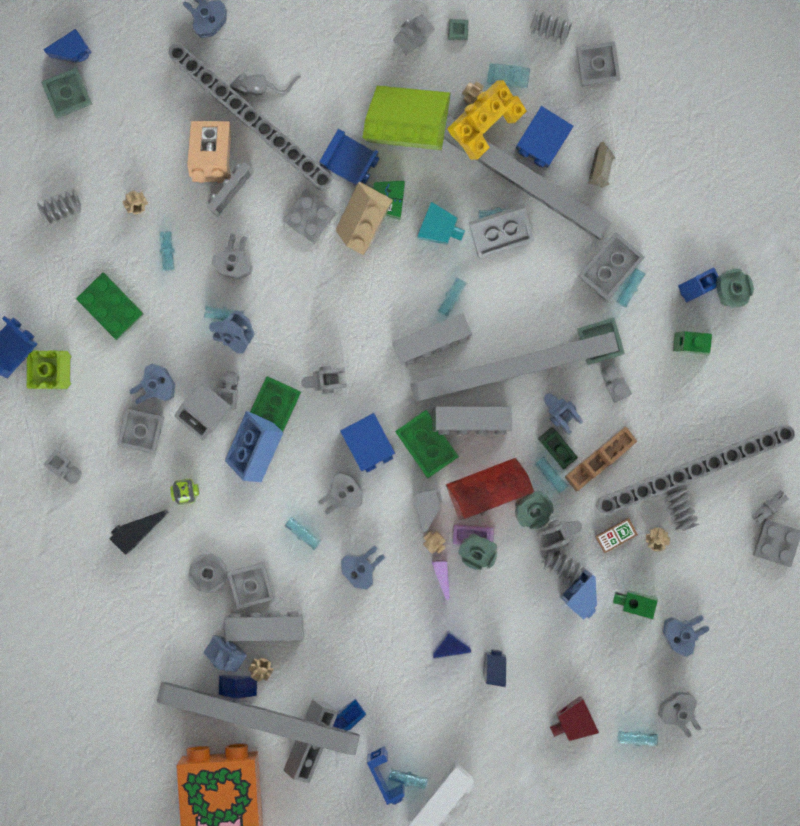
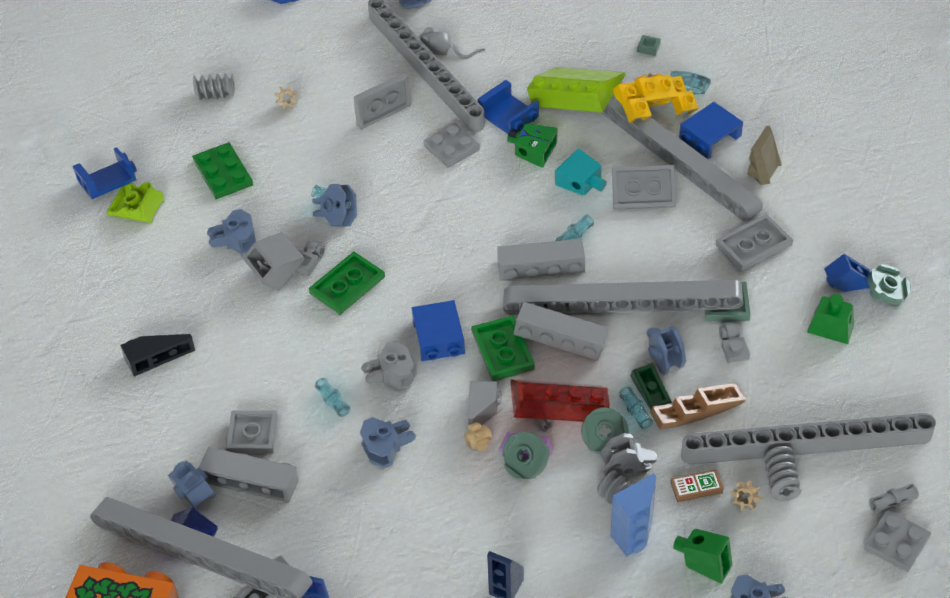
camera: 20 degrees right, 40 degrees down
(59, 463) = (106, 281): light grey plate -> none
(66, 92) = (262, 16): sand green plate -> none
(140, 431) = (201, 270): light grey plate -> none
(167, 251) = (299, 140): clear light blue pin -> none
(184, 491) = (221, 330): head -> none
(203, 583) = (210, 420): light grey plate -> none
(209, 164) = (371, 70): light nougat brick -> none
(233, 257) = (360, 154): light grey hinge -> none
(253, 447) = (314, 302): medium blue slope -> none
(260, 669) = (224, 513): tan gear -> none
(324, 380) = (414, 264): light grey hinge -> none
(363, 218) = (506, 146): tan slope -> none
(414, 33) = (604, 31): light grey hinge -> none
(441, 571) = (477, 468): lavender slope -> none
(450, 646) = (459, 546): clear blue slope -> none
(550, 27) = (738, 56): light grey piece -> none
(598, 64) = (781, 90): light grey plate -> none
(630, 287) = (771, 264): clear light blue pin -> none

